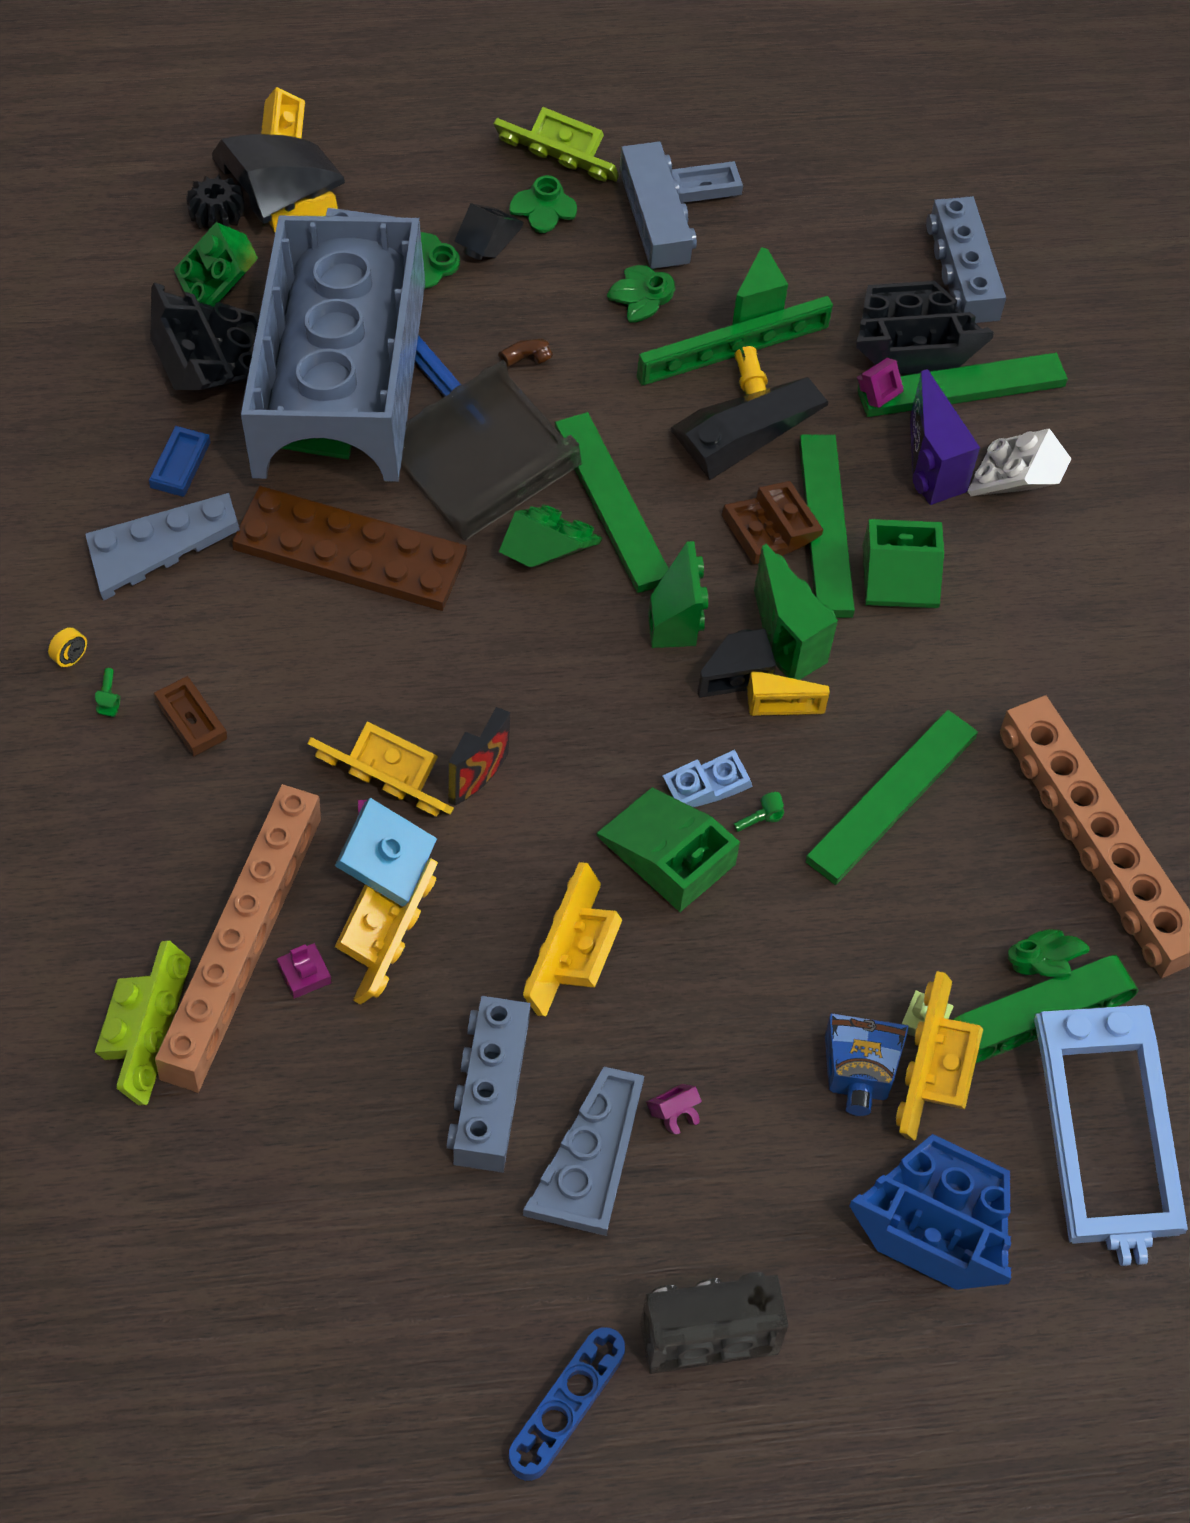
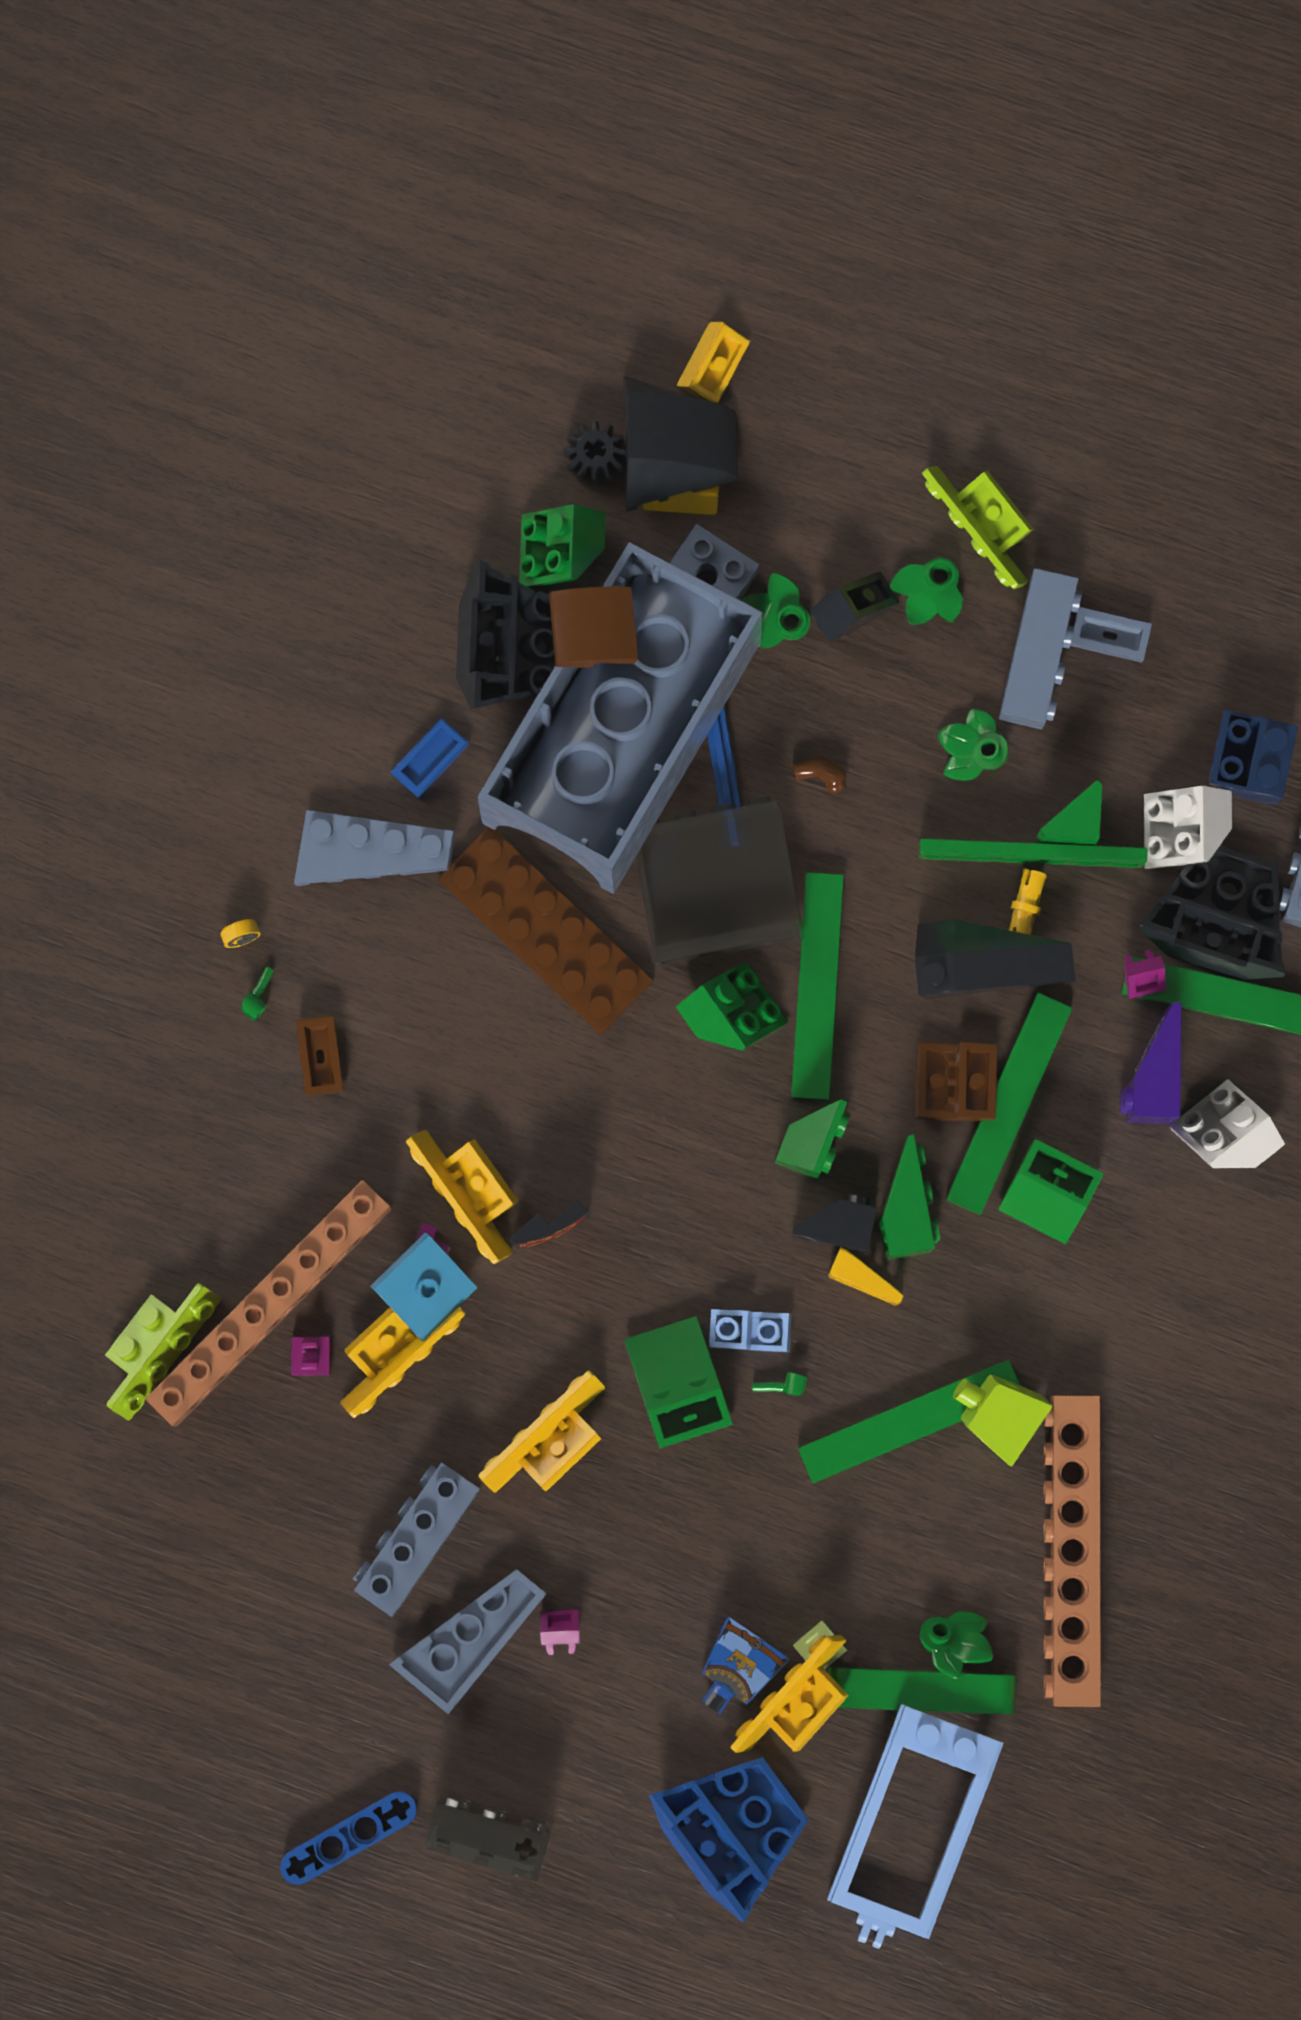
camera: 30 degrees right, 25 degrees up
(279, 267) = (593, 626): none -> reddish brown slope
(844, 274) = (1185, 825): none -> white slope
(873, 214) = (1253, 757): none -> dark blue slope
(971, 747) = (1002, 1414): none -> lime torso

